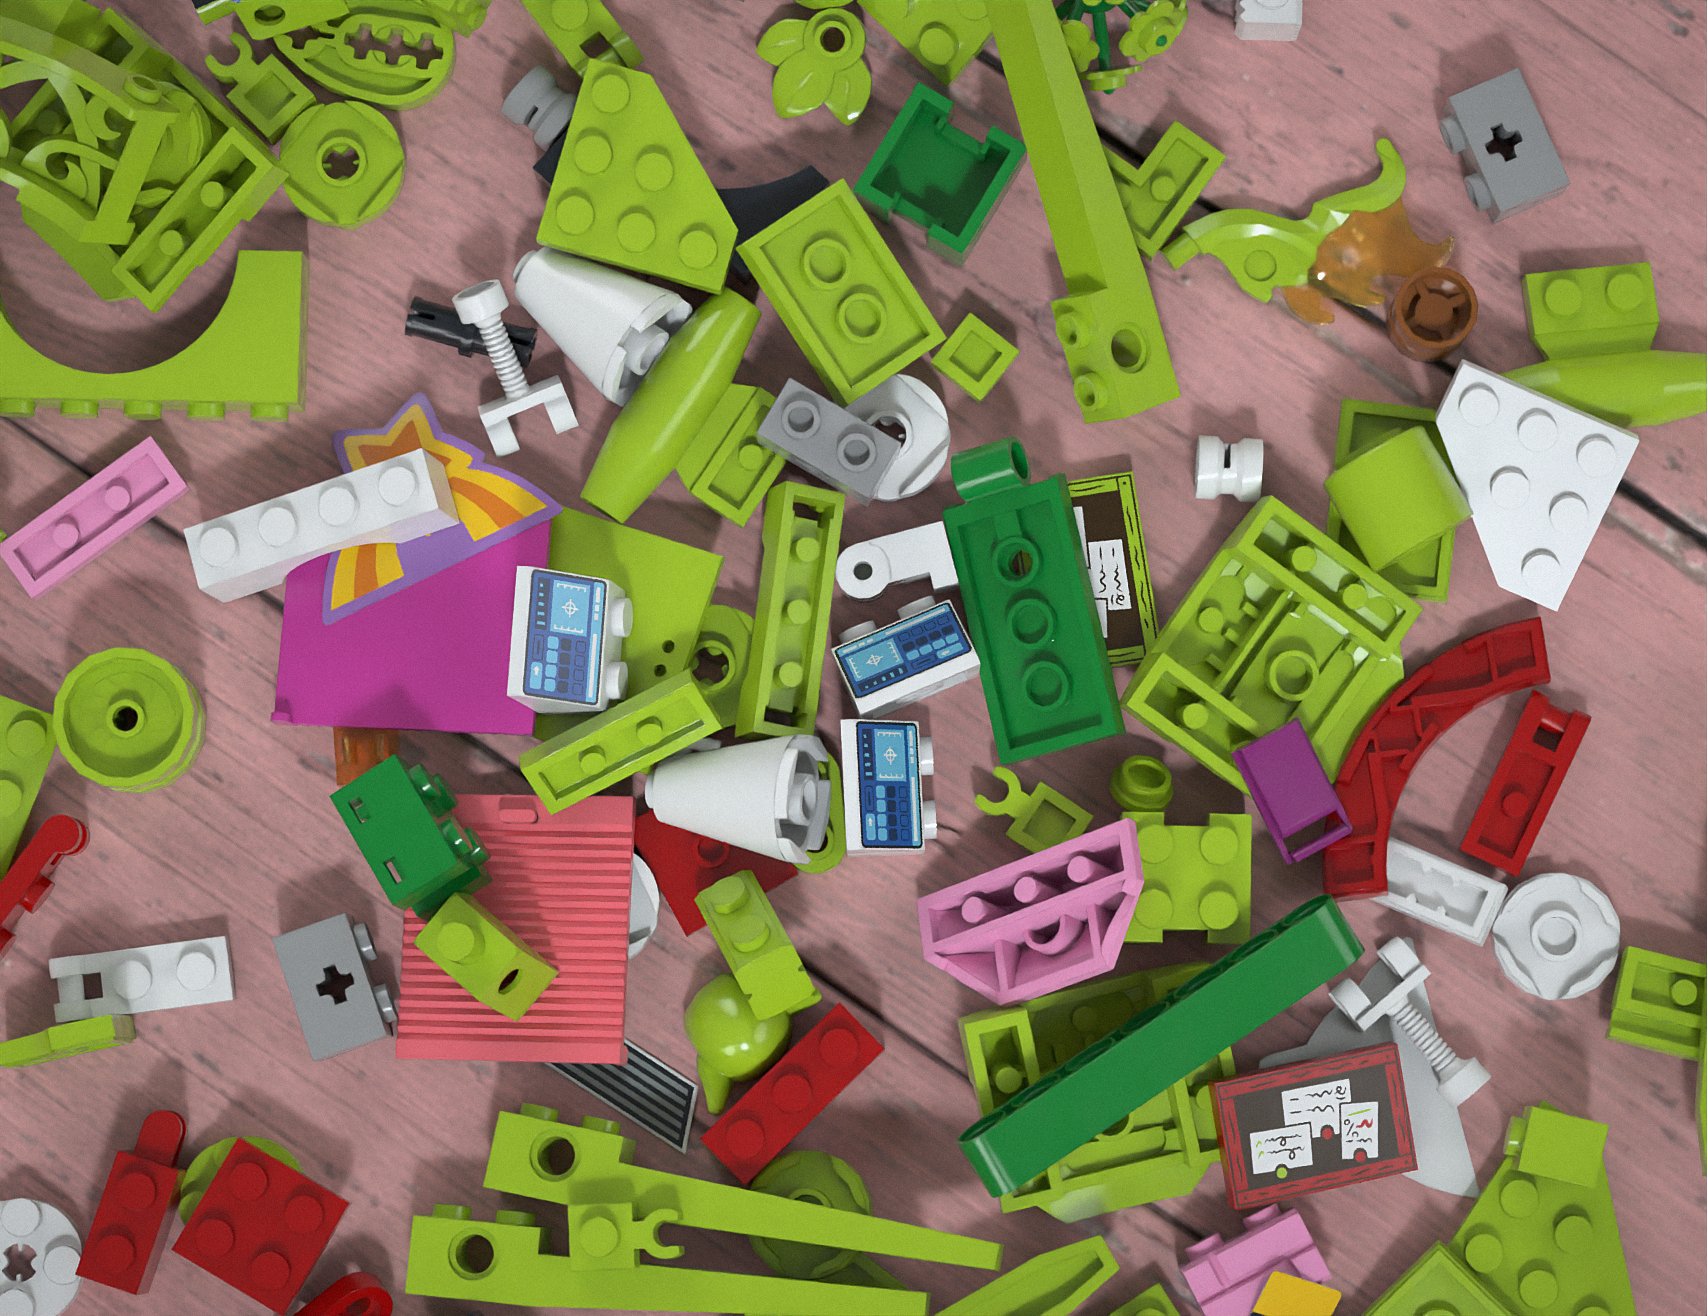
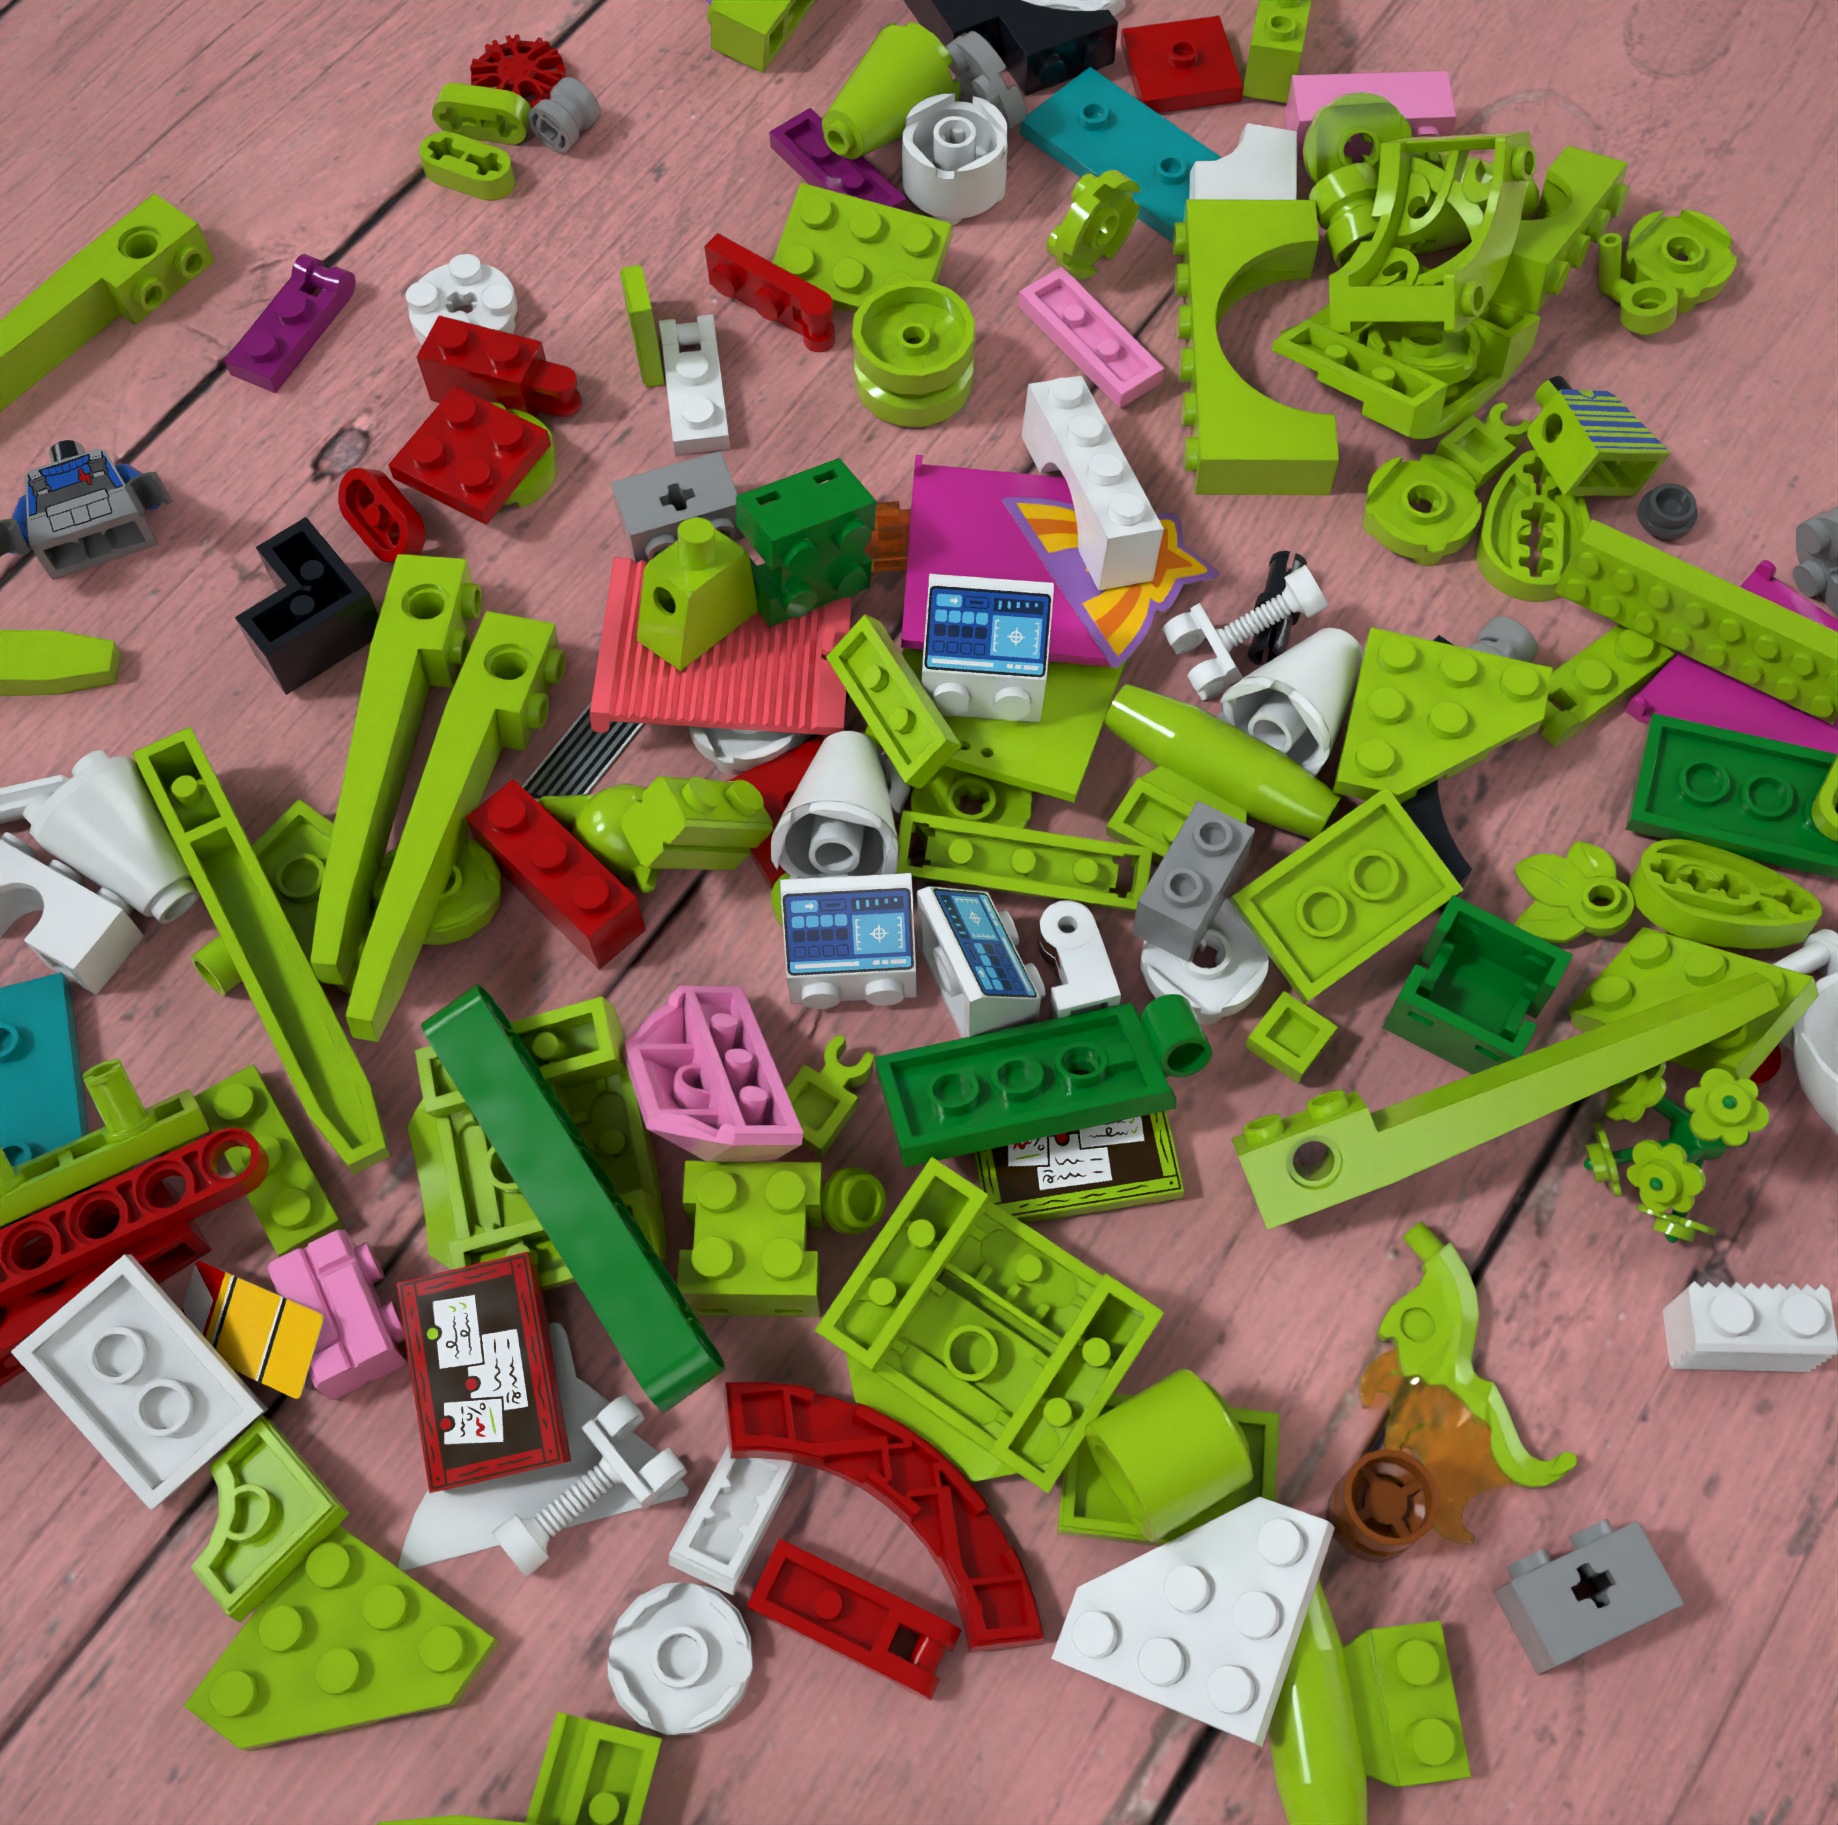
camera: 85 degrees right, 20 degrees down
(611, 1236) = (420, 699): lime plate -> none
(1164, 185) = (1475, 1211): lime plate -> none
(1228, 468) = (1193, 1287): white wheel -> none
(1290, 788) = (845, 1340): magenta piece -> none
(1556, 1146) = (430, 1638): lime brick -> none

